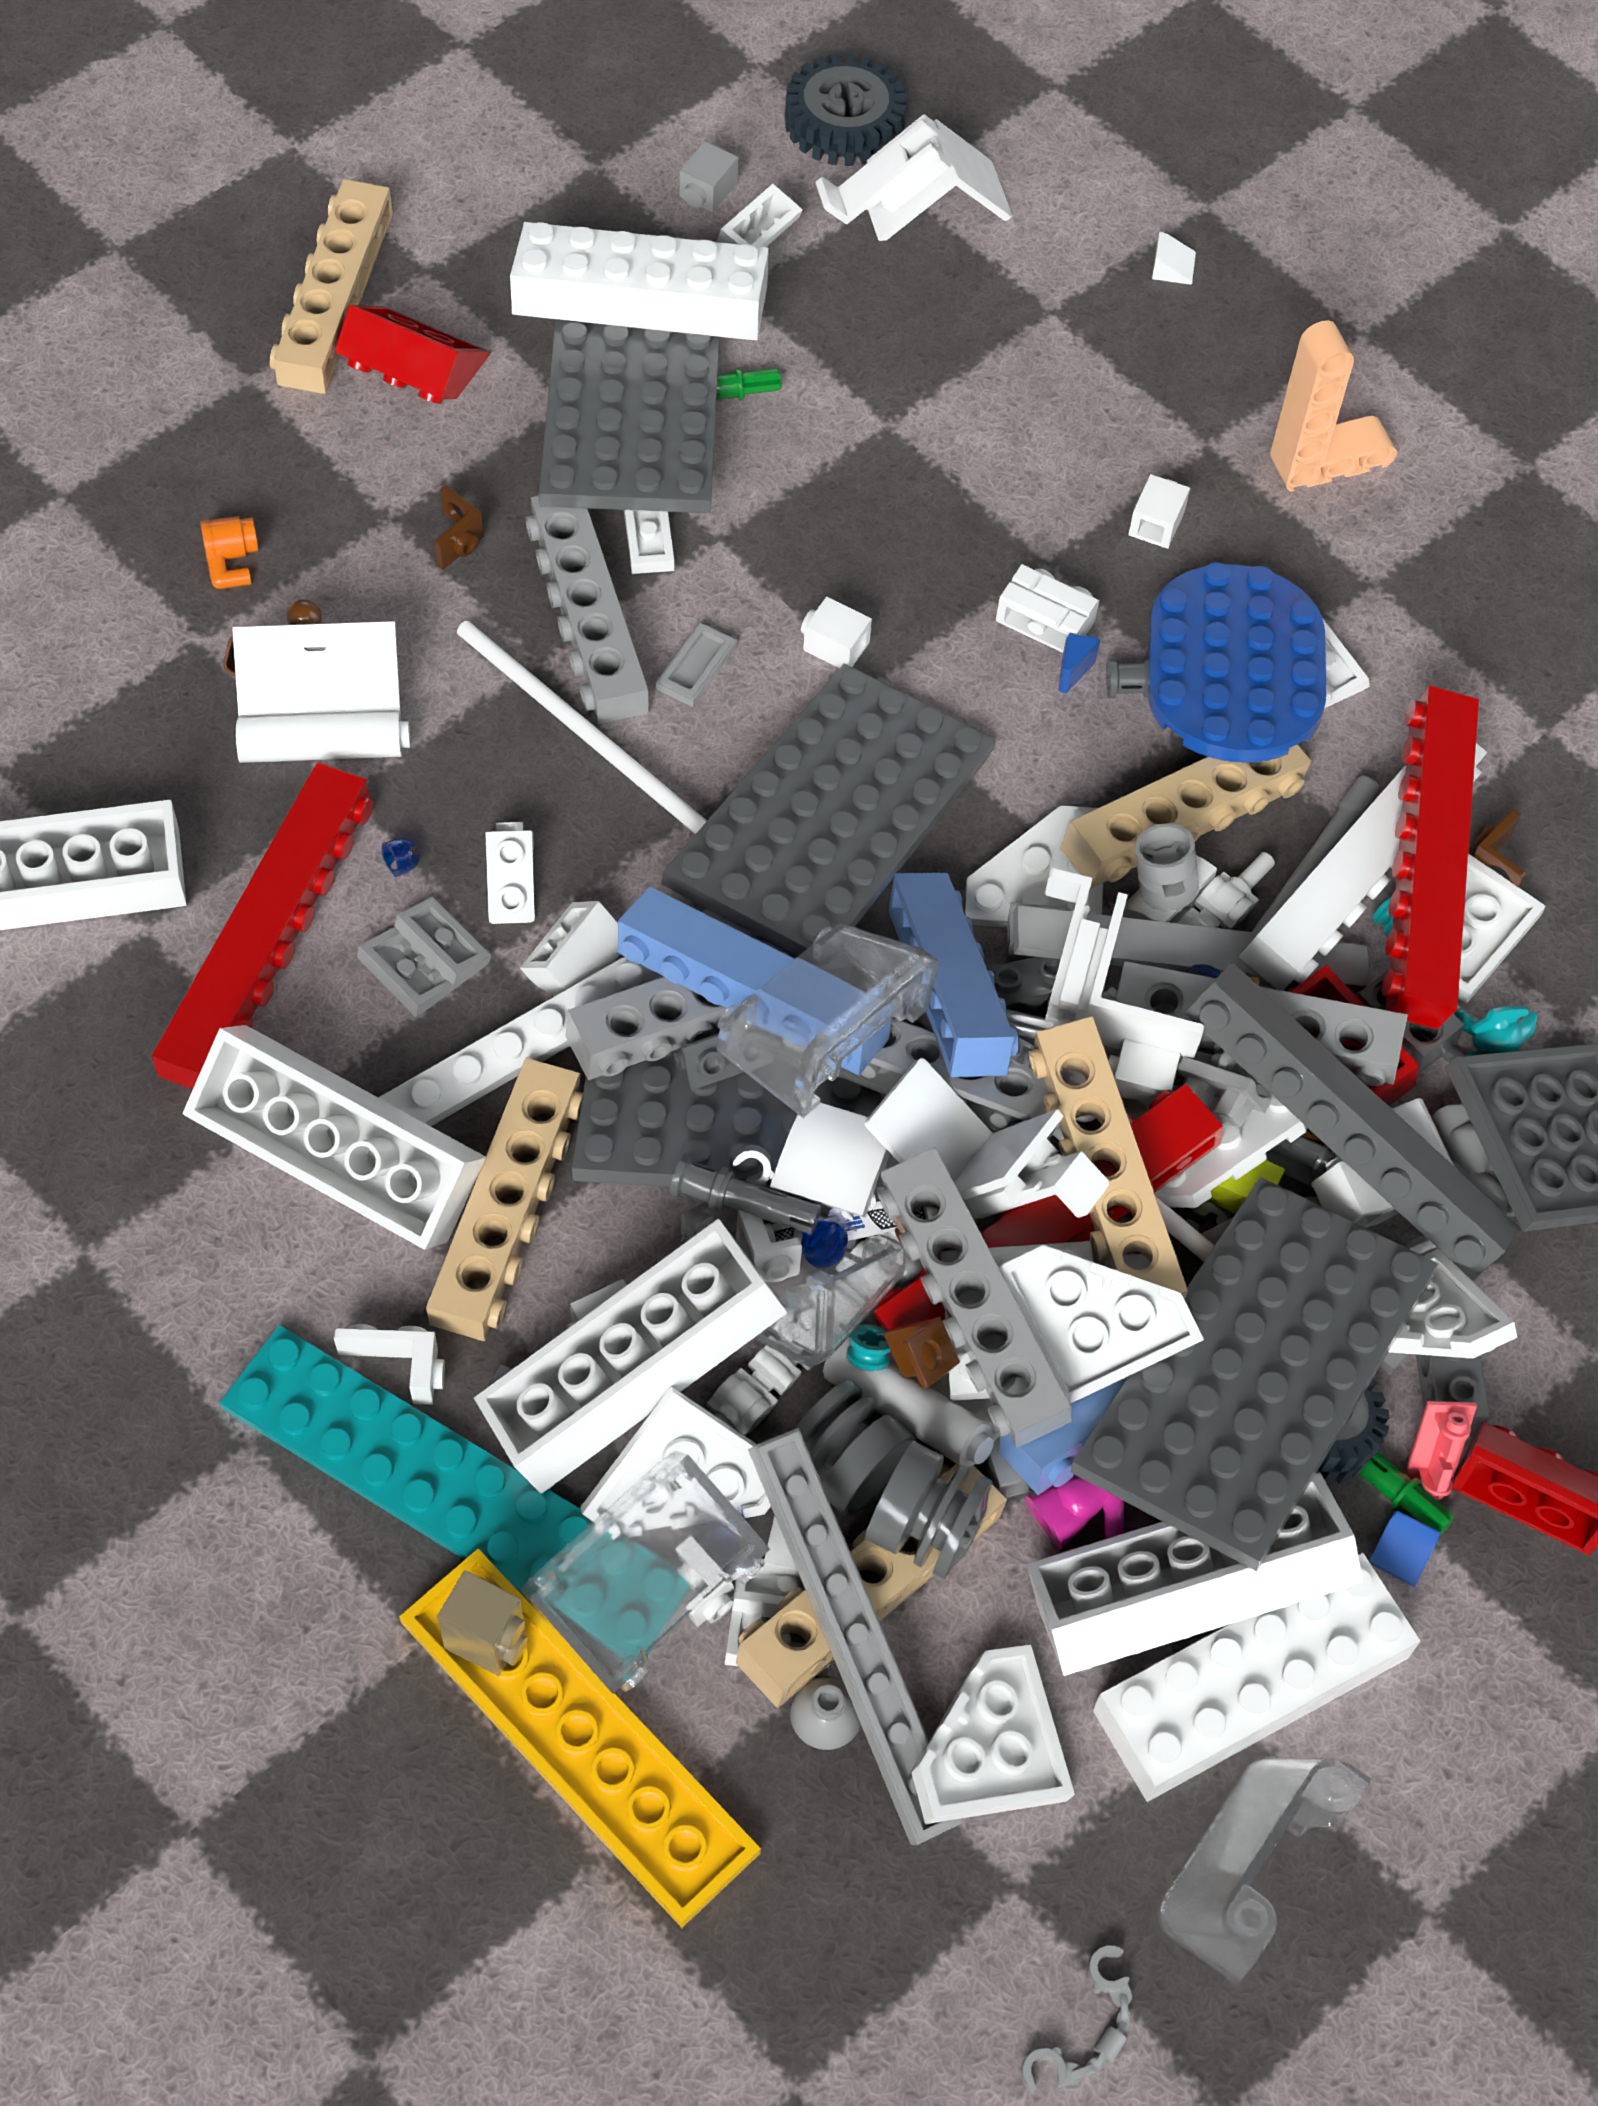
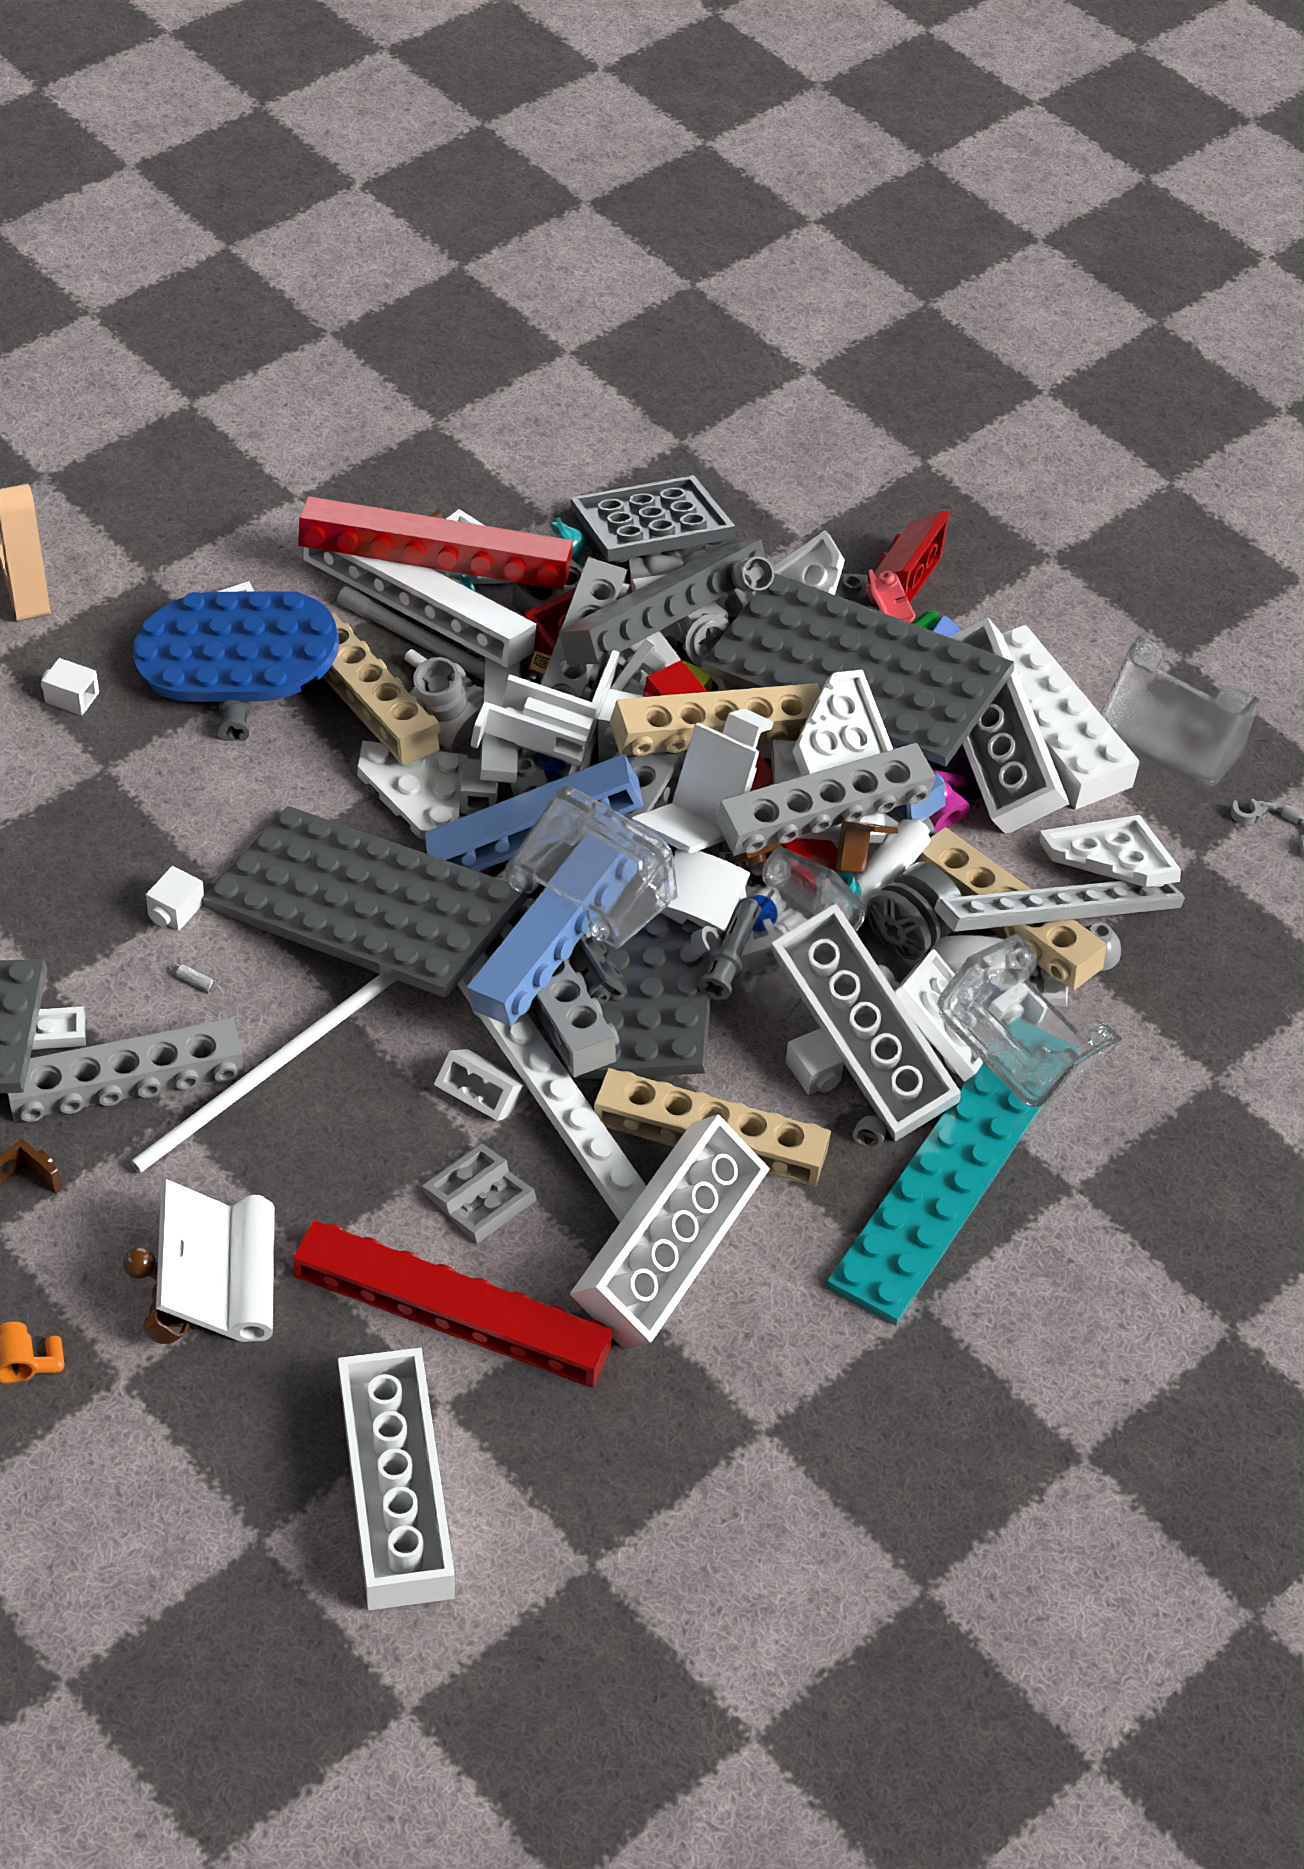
camera: 90 degrees left, 10 degrees down
(400, 851) = (380, 1203): clear blue hinge -> none
(407, 1342) = (853, 1179): white bracket -> none
(483, 1624) = (1081, 1113): dark tan brick -> none
(510, 874) = (394, 1118): white bracket -> none
(596, 1756) = (1130, 1088): yellow plate -> none
(696, 664) = (188, 1000): light grey tile -> none
(731, 666) = (195, 978): none -> white piece
(929, 1510) = (979, 844): dark grey wheel -> none
(1046, 608) = (163, 762): white brick -> none
(1077, 658) = (218, 750): blue slope -> none
(1313, 1171) = (710, 623): none -> light grey gear
(1401, 1221) = (760, 574): none -> light grey wheel

